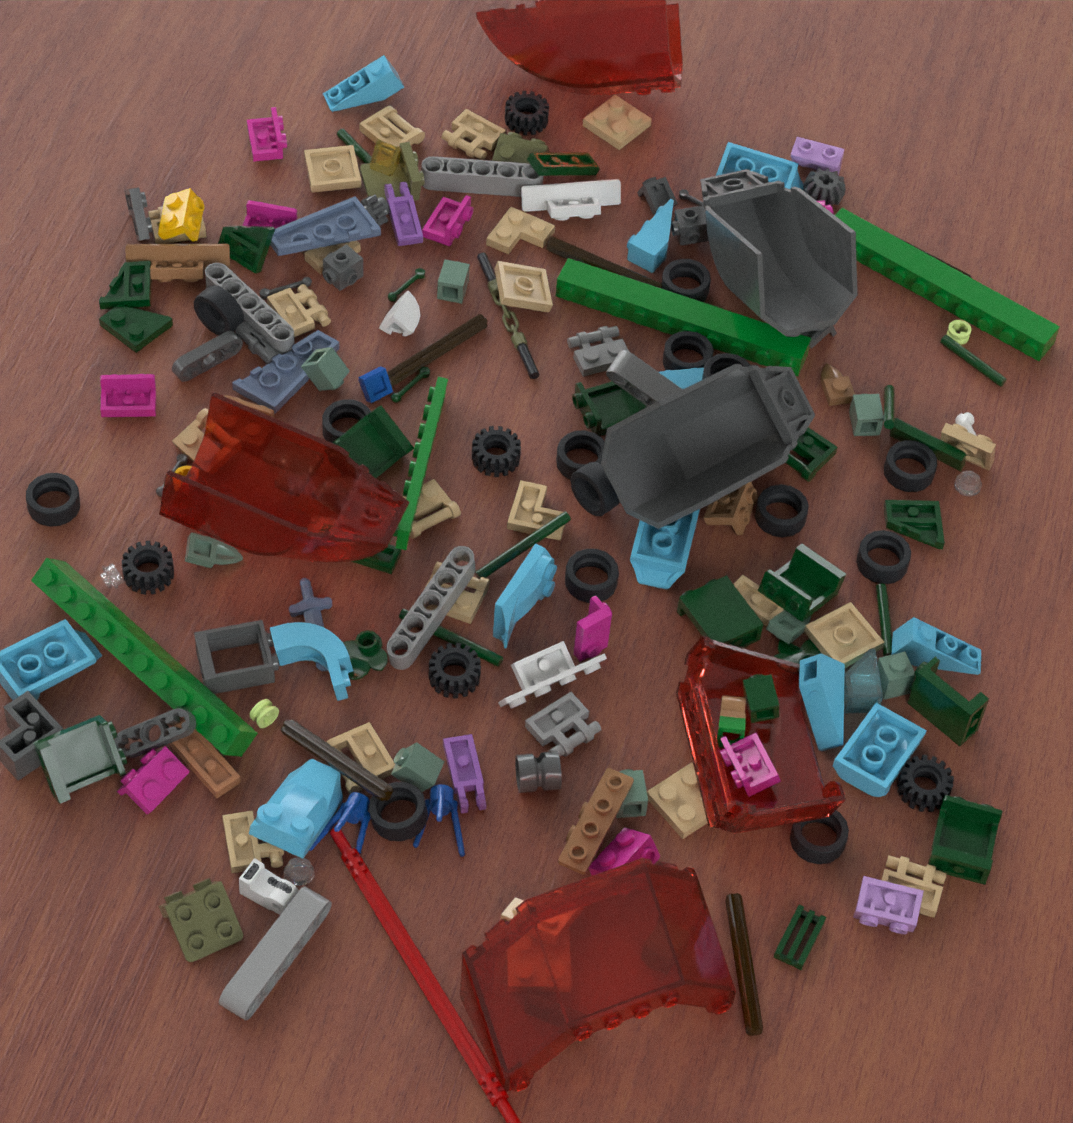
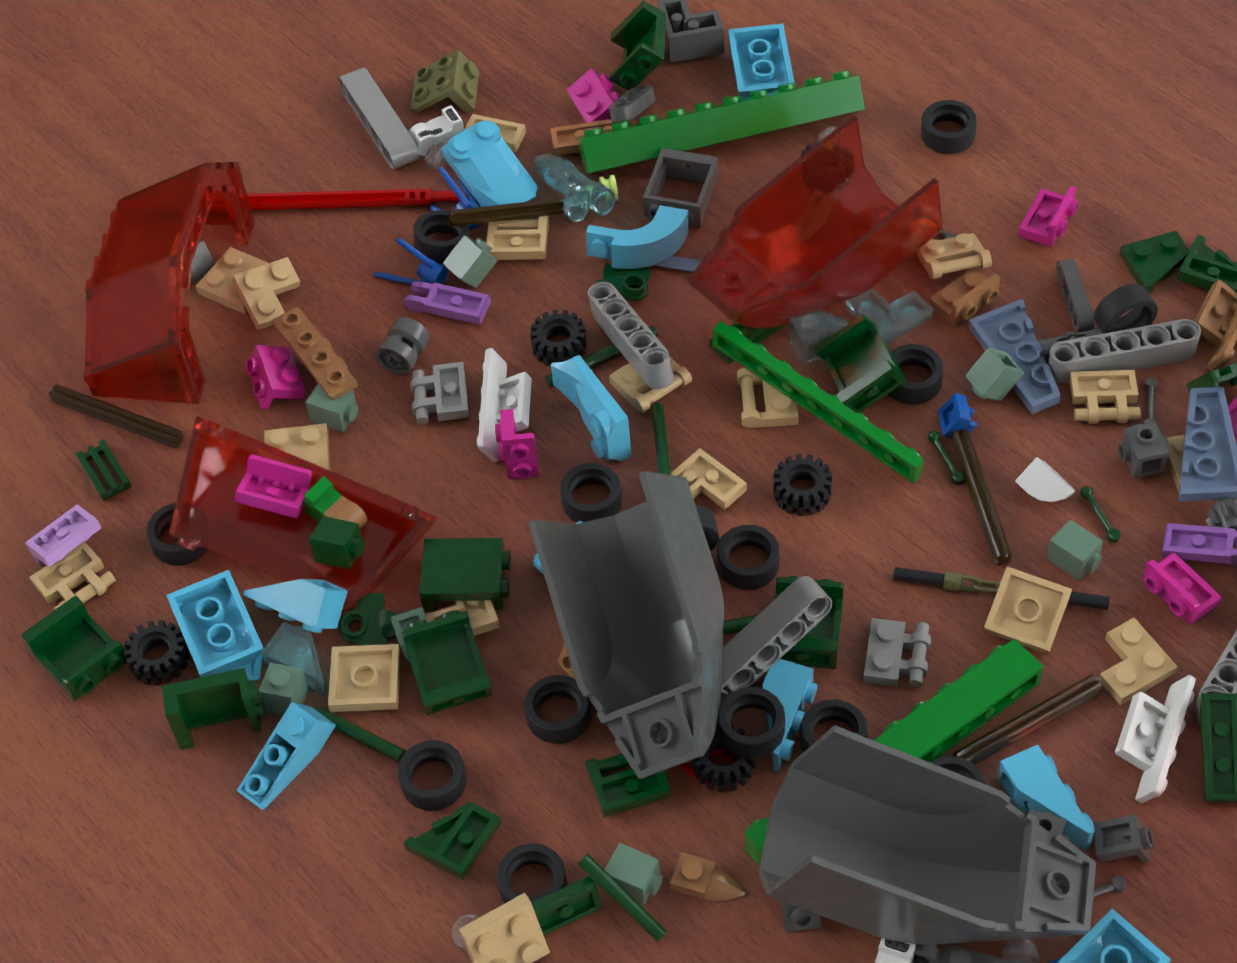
camera: 130 degrees right, 0 degrees up
(273, 753) = (577, 188): none -> clear light blue piece

